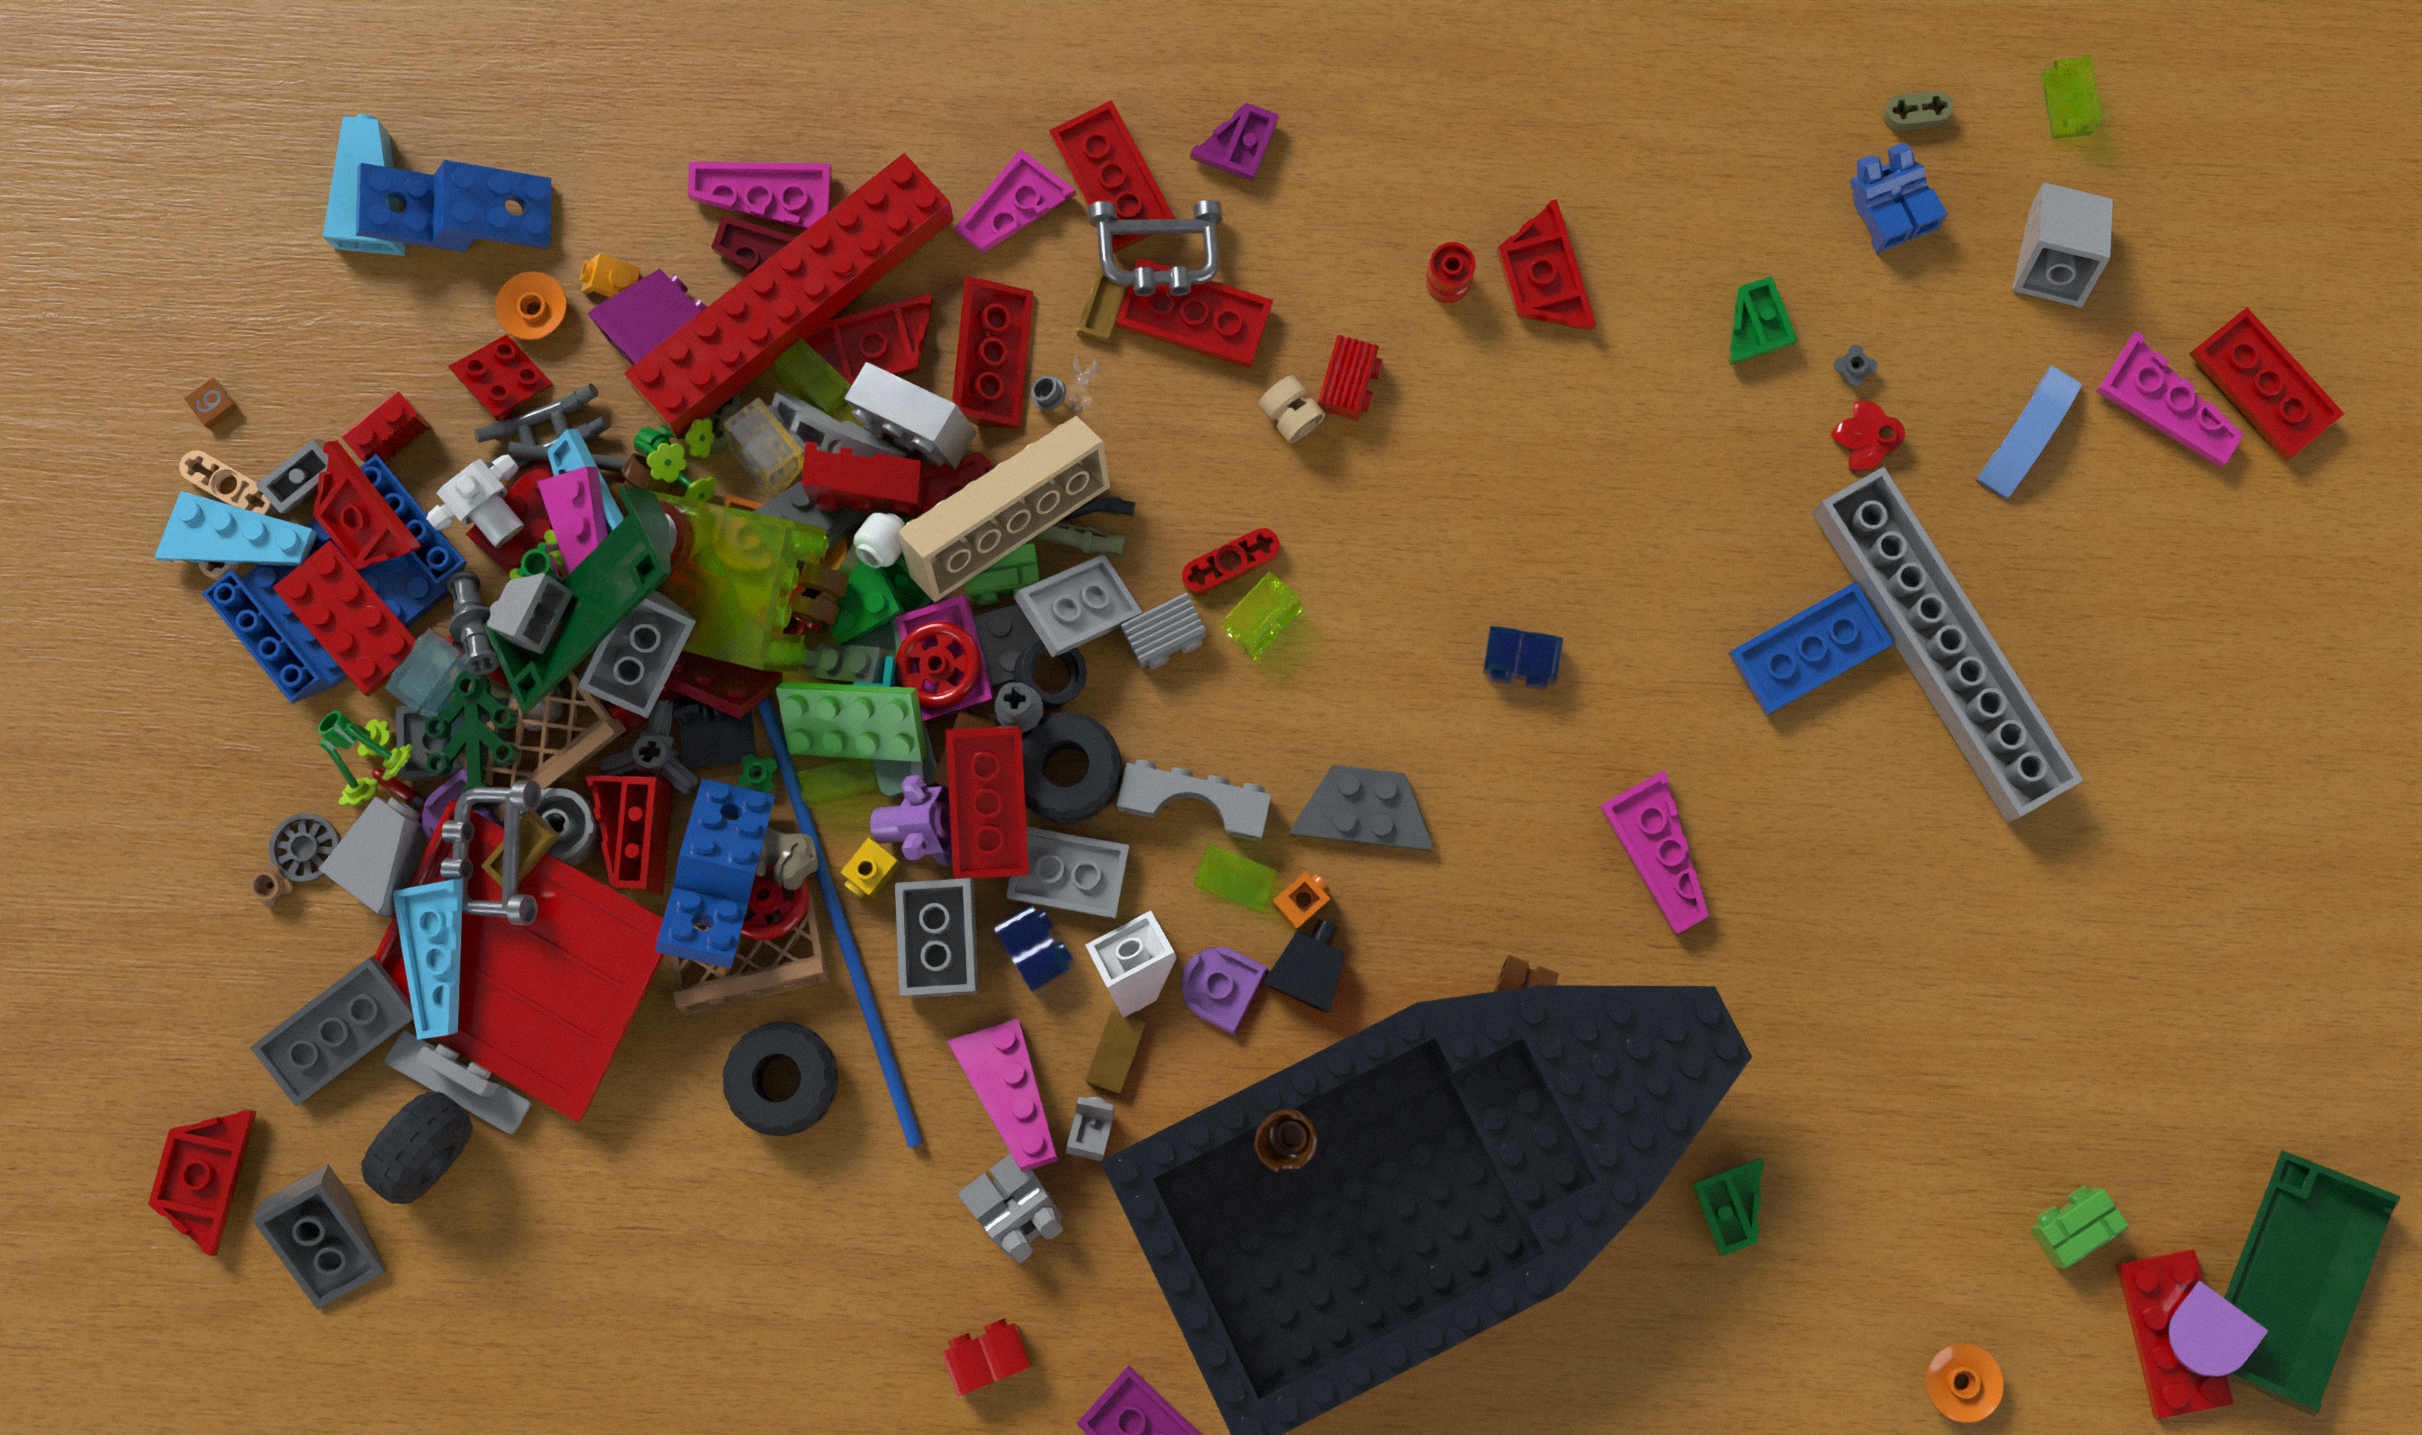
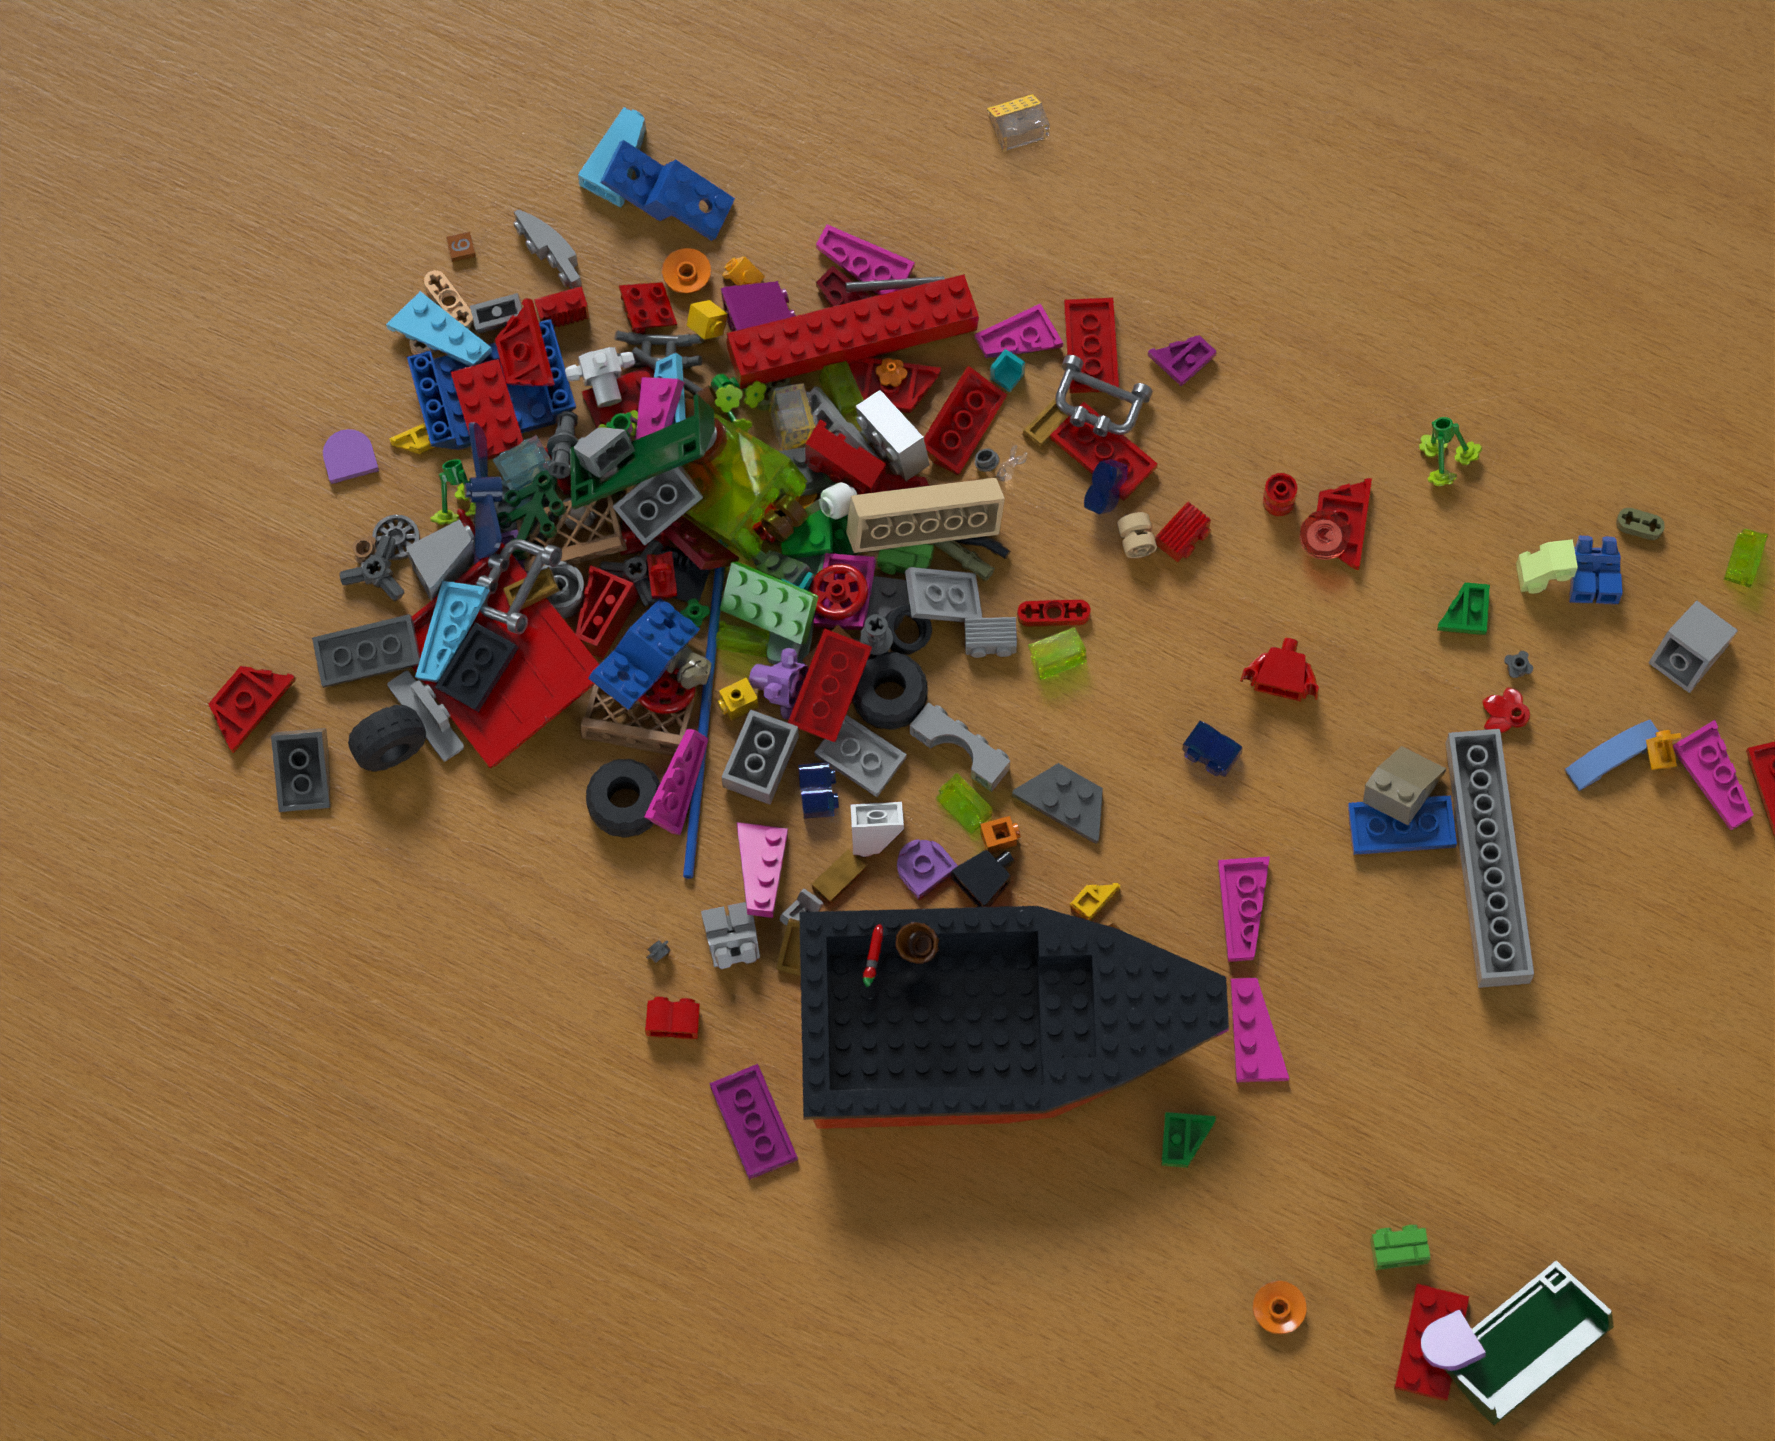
camera: 25 degrees right, 10 degrees down
(187, 762) = (348, 455): none -> medium lavender tile
(264, 702) = (413, 440): none -> yellow tile
(312, 909) = (379, 579): none -> dark grey bush
(328, 350) = (550, 244): none -> light grey slope
(390, 741) = (483, 492): none -> dark blue piece
(495, 992) = (477, 667): none -> black plate
(589, 362) = (706, 319): none -> yellow brick
(689, 746) = (662, 576): none -> red hips
(812, 207) = (889, 284): none -> dark grey bar
(845, 1032) = (677, 786): none -> dark pink wing
(870, 334) = (891, 376): none -> orange plant
(923, 1270) = (658, 950): none -> dark grey plate
(1019, 258) = (1007, 370): none -> teal panel
(1101, 1195) = (790, 951): none -> pearl gold tile
(1224, 367) = (1106, 481): none -> clear blue brick
(1232, 1182) = (870, 972): none -> red piece
(1461, 930) = (1093, 899): none -> yellow tile
(1533, 302) = (1324, 535): none -> clear red tile
(1567, 511) = (1282, 673): none -> red torso
(1622, 101) = (1442, 434): none -> plant
(1773, 1038) = (1255, 1042): none -> dark pink wing
(1791, 594) = (1402, 784): none -> dark tan slope
(1843, 211) = (1553, 561): none -> yellowish green brick
(2089, 401) = (1661, 750): none -> light orange bracket

